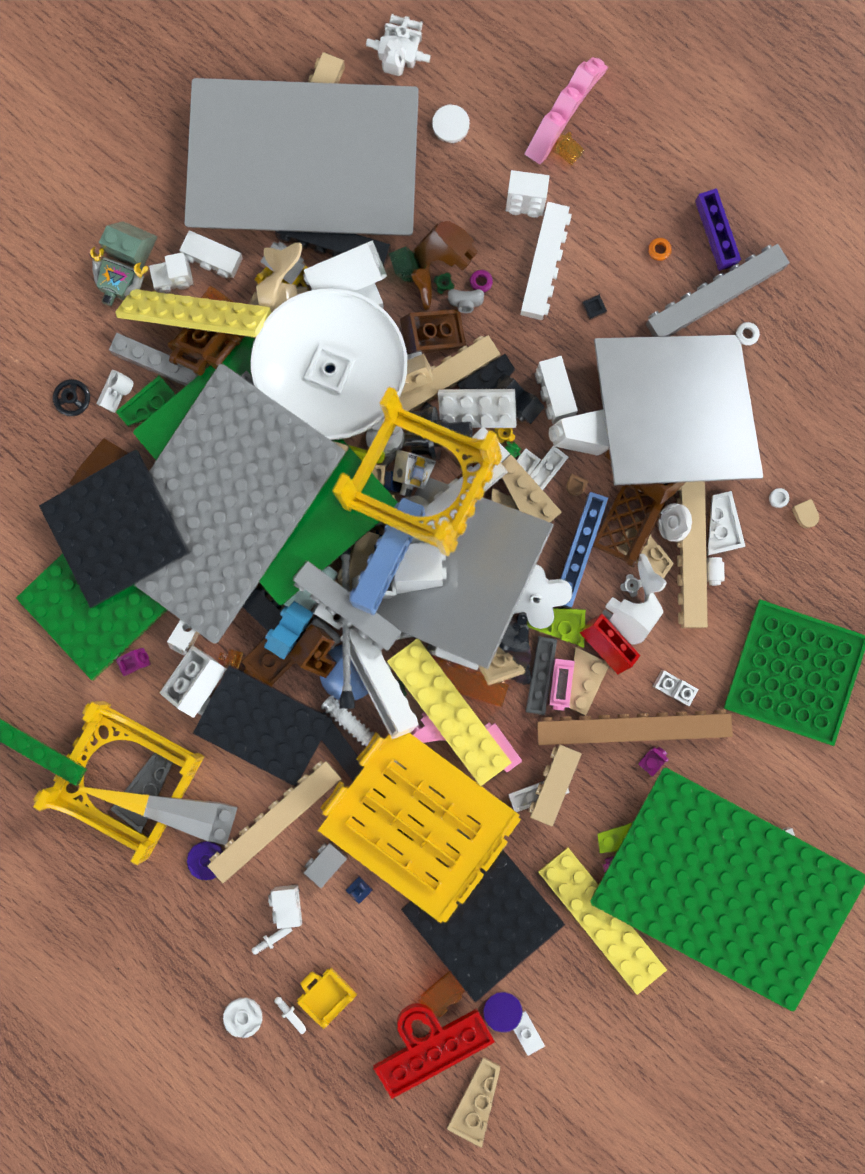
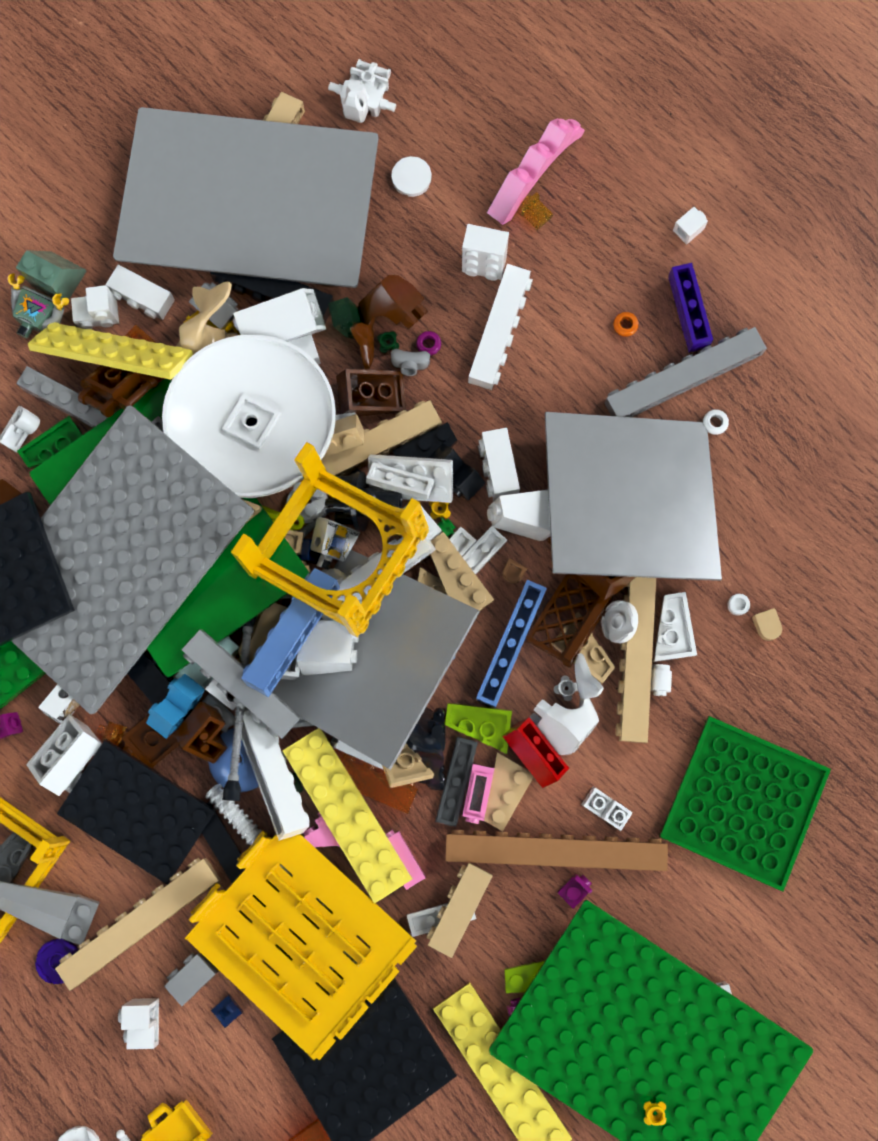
camera: 10 degrees right, 5 degrees down
(271, 940) = (120, 1061): white piece -> none
(469, 412) = (399, 481): none -> white plate
(541, 596) = (460, 692): white plant -> none
(594, 307) = (549, 380): black tile -> none
(712, 151) = (690, 225): none -> white brick
(740, 945) = (659, 1118): none -> yellow plate

